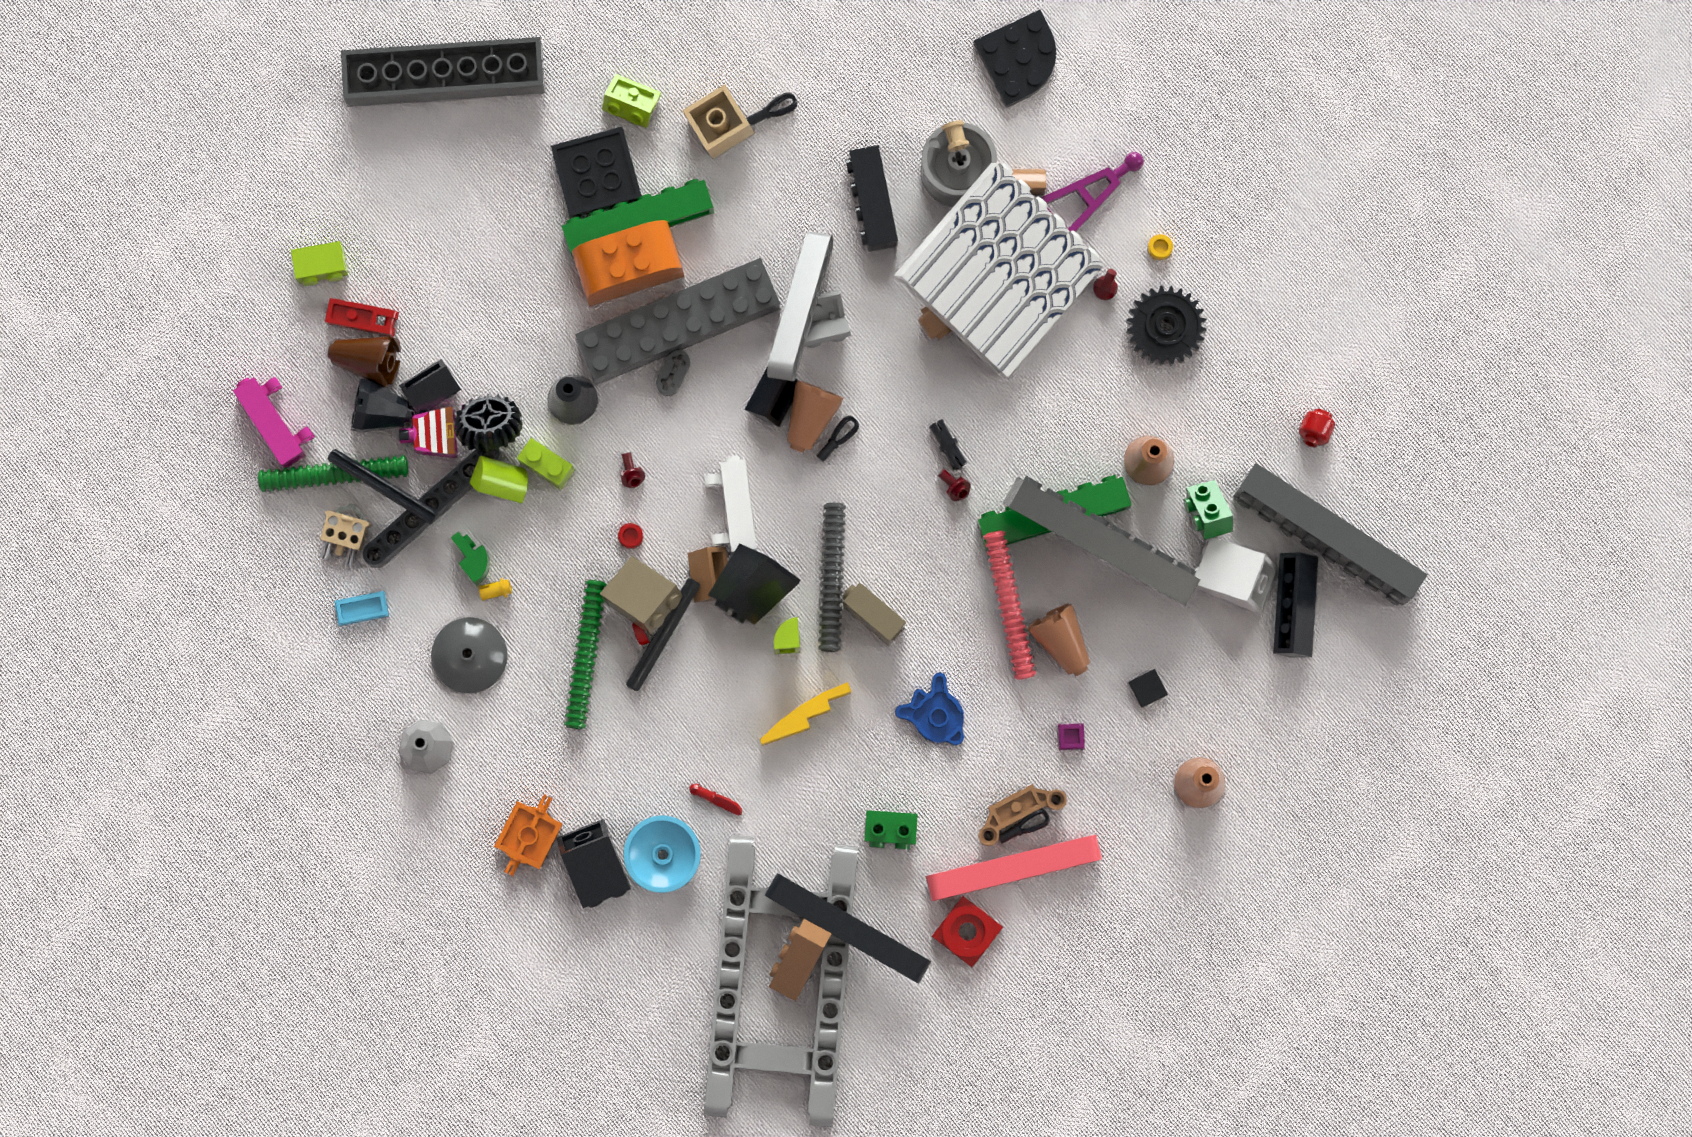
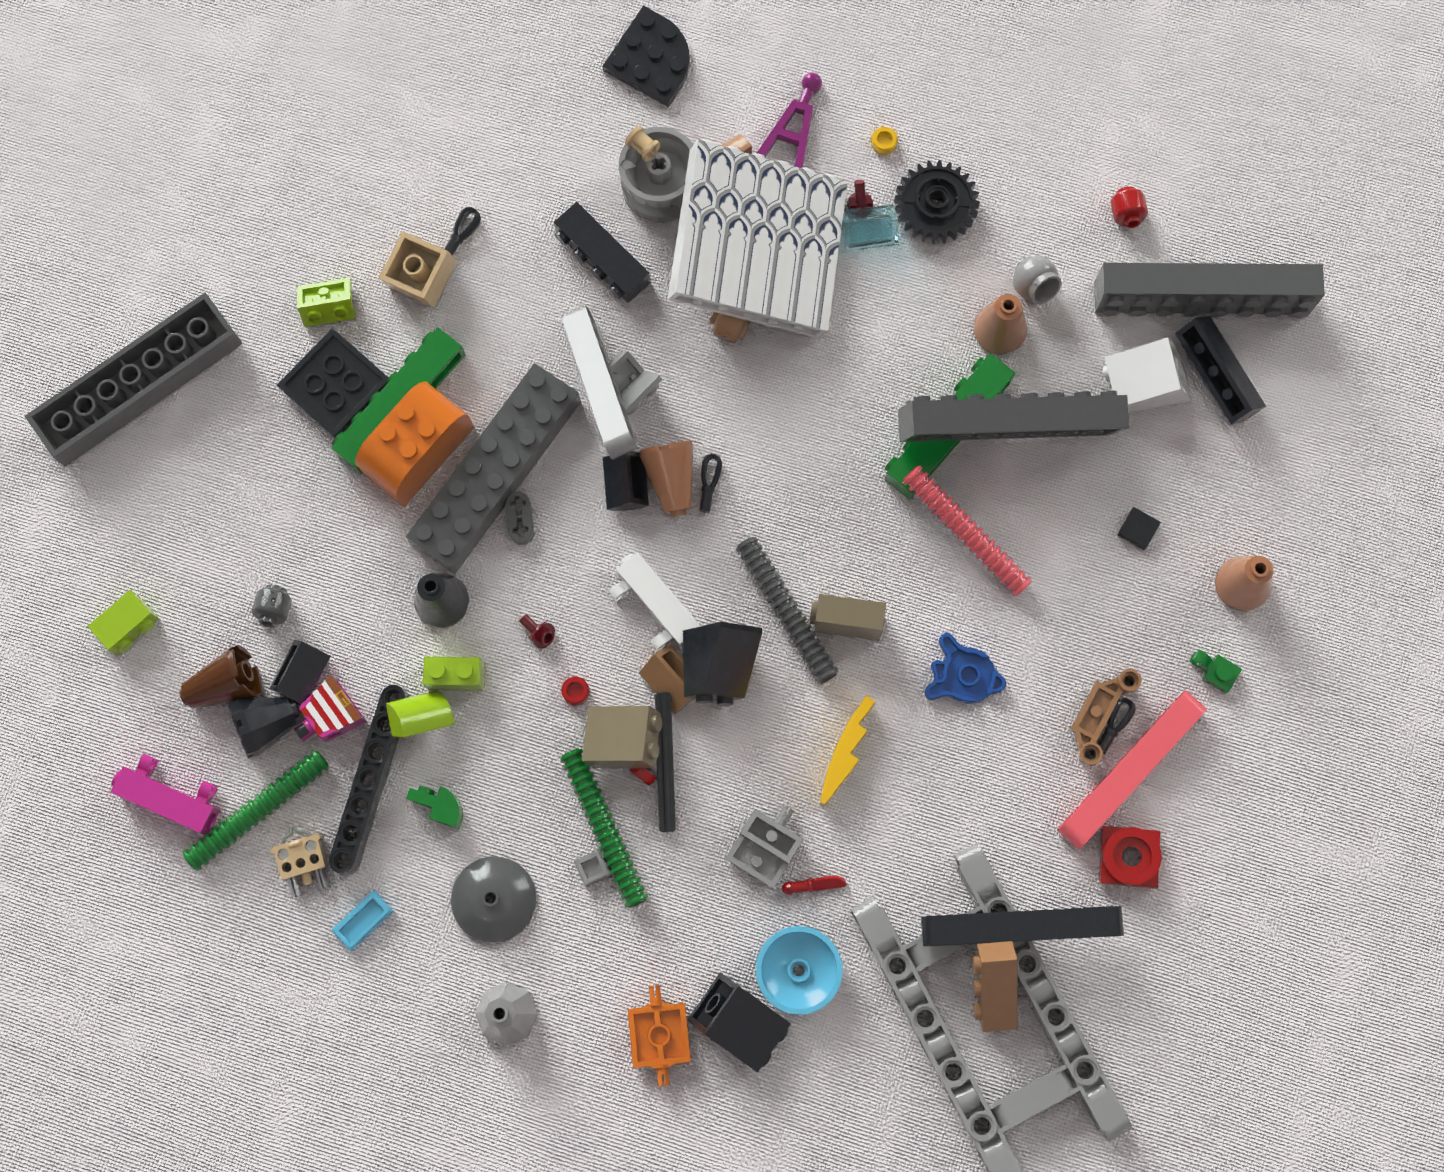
camera: 25 degrees left, 5 degrees down
(361, 317) = (193, 648): red plate -> none
(382, 486) = (325, 790): black axle -> none
(440, 321) = (271, 605): none -> dark grey head
(488, 423) = (375, 669): black gear -> none
(495, 589) = (479, 821): yellow pin -> none
(557, 679) = (592, 868): none -> light grey tile
(697, 747) = (765, 847): none -> light grey plate
(787, 637) = (784, 689): lime brick -> none
(890, 823) = (995, 805): green brick -> none
(948, 444) = (812, 425): black pin -> none
(958, 489) = (848, 459): dark red plate -> none
(1062, 638) = (1034, 531): nougat cone -> none
(1071, 736) = (1100, 616): magenta tile -> none
(1099, 312) = (870, 227): none -> clear light blue brick
(1133, 837) = (1218, 672): none -> green plate
(1201, 440) = (1036, 279): none -> light grey piece
(1208, 509) = (1087, 333): green brick -> none

